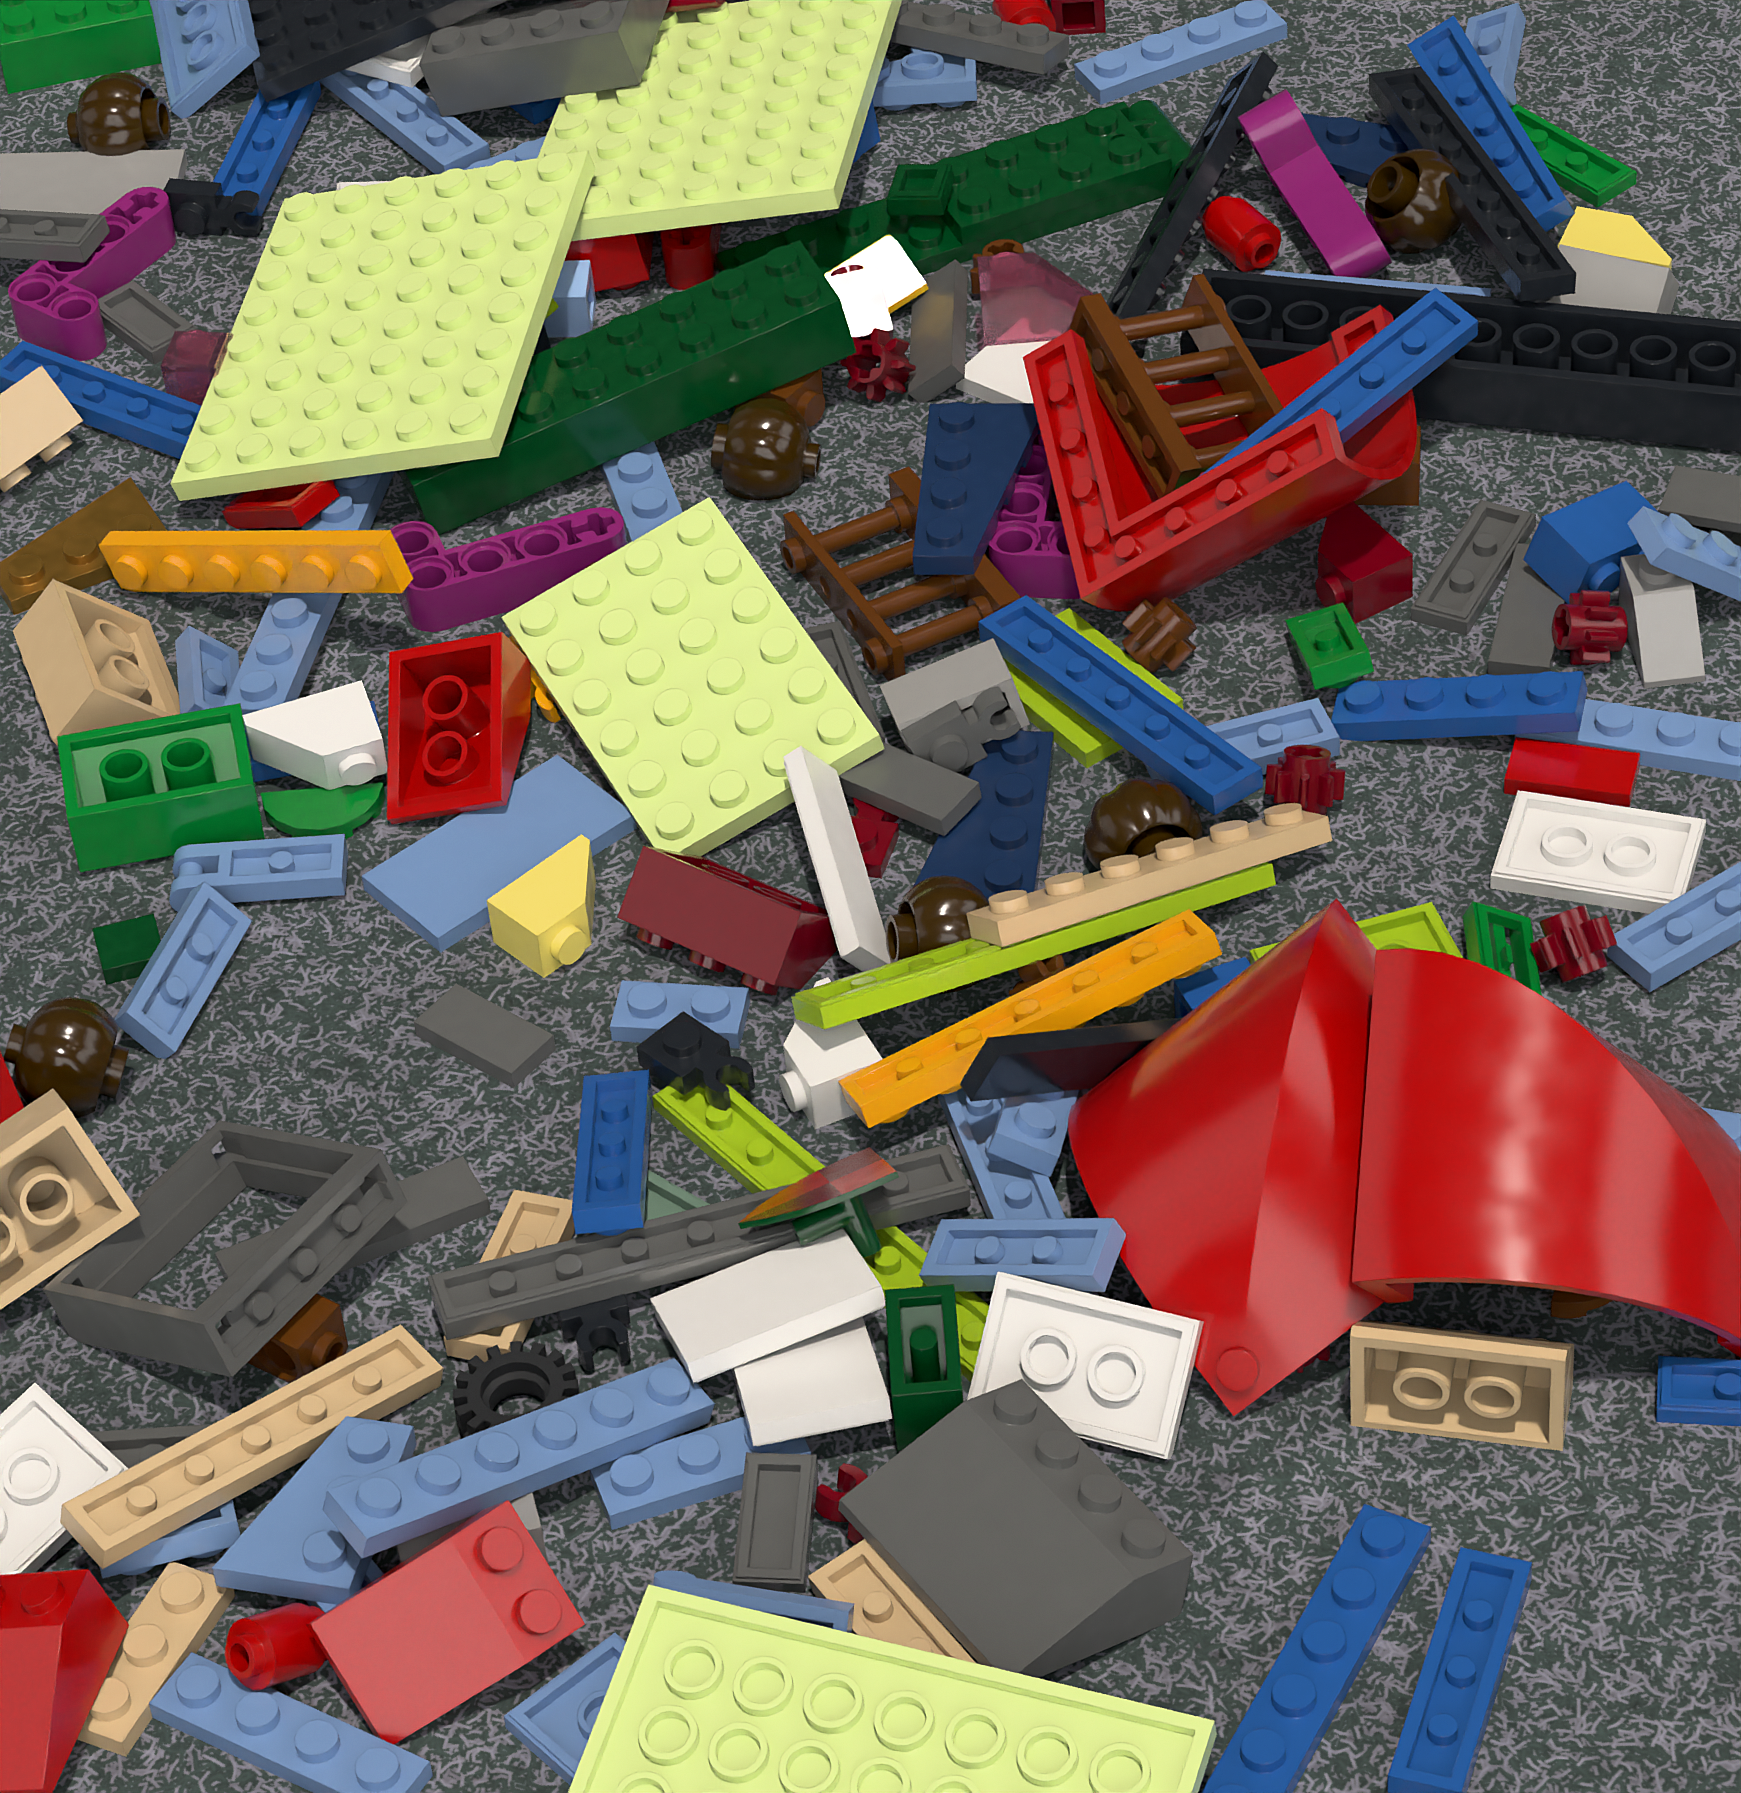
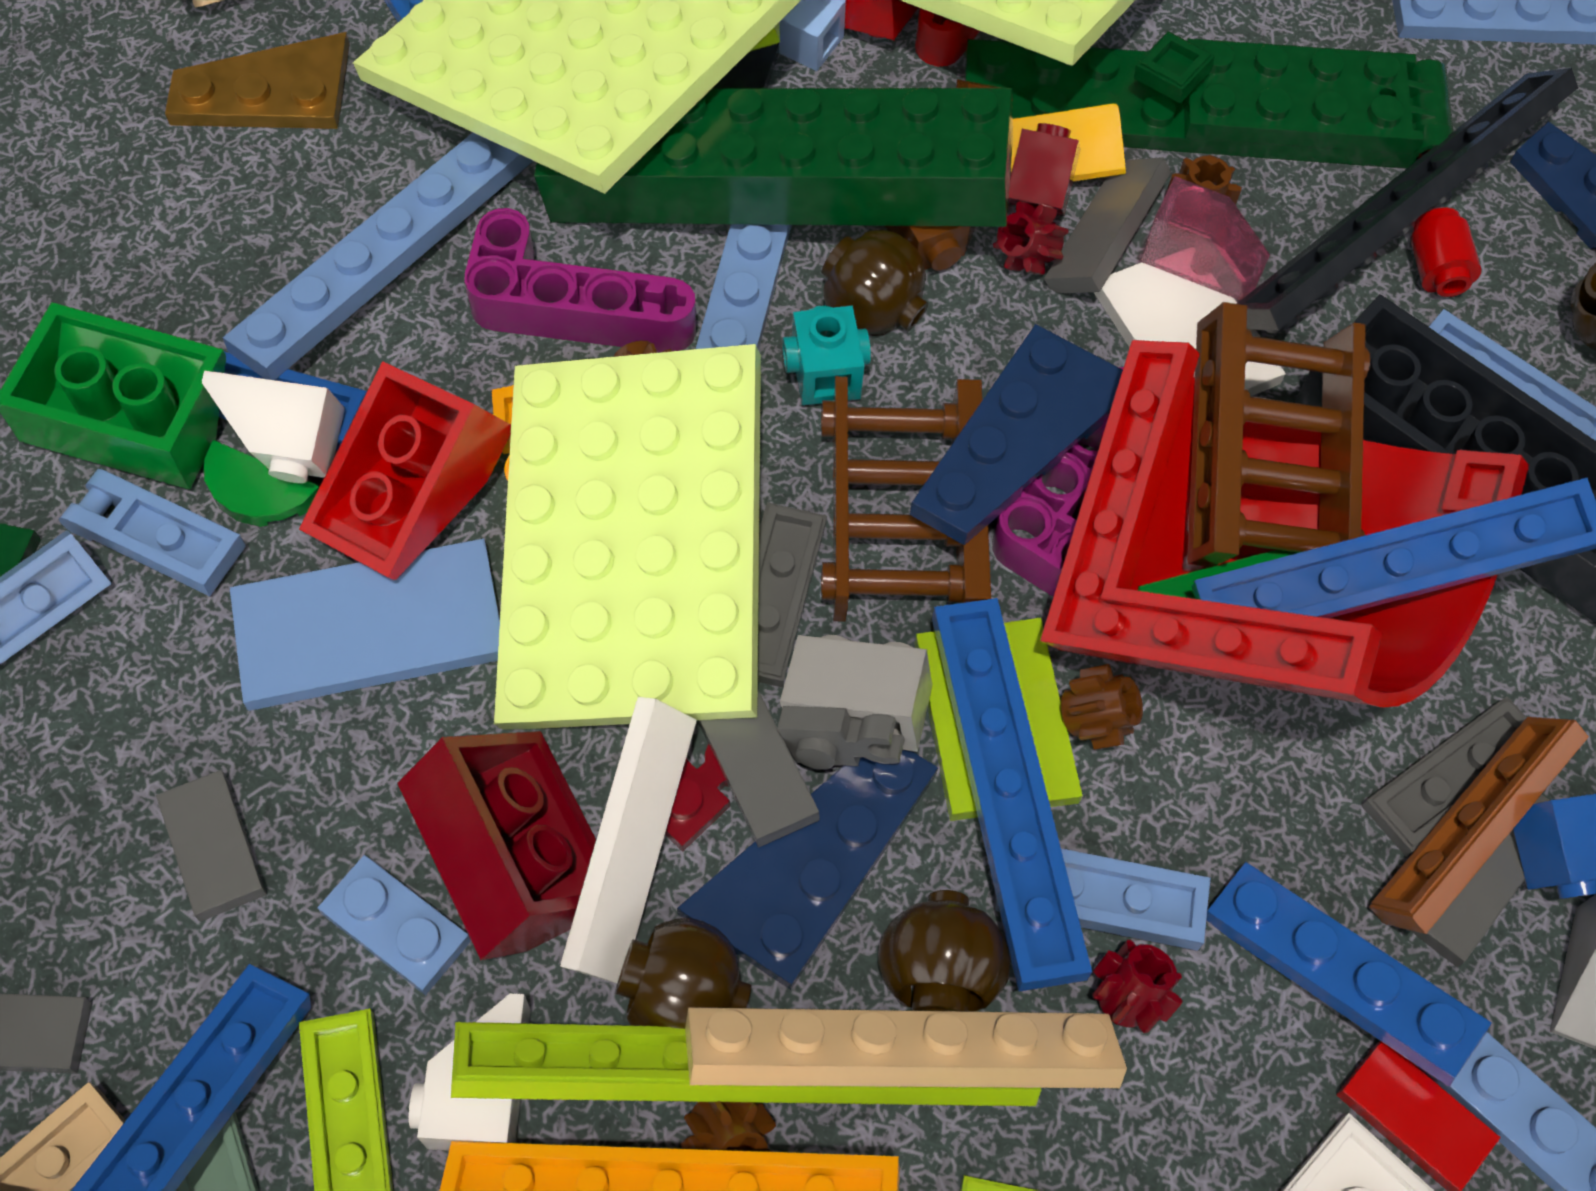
camera: 20 degrees right, 20 degrees up
(92, 663) = (173, 235): tan slope -> none
(203, 670) = (251, 279): medium blue plate -> none
(257, 561) = (350, 197): light orange plate -> none
(280, 506) = (434, 136): red tile -> none
(548, 910) = (355, 731): light yellow slope -> none
(692, 1055) = (348, 1004): black plate -> none
(755, 507) = (826, 346): none -> teal brick
(1313, 188) = (1537, 245): magenta beam -> none
(1329, 647) = (1257, 816): green plate -> none
(1361, 565) = (1340, 739): dark red slope -> none
(1502, 572) = (1477, 823): none -> dark orange tile
(1589, 627) = (1532, 941): dark red gear -> none

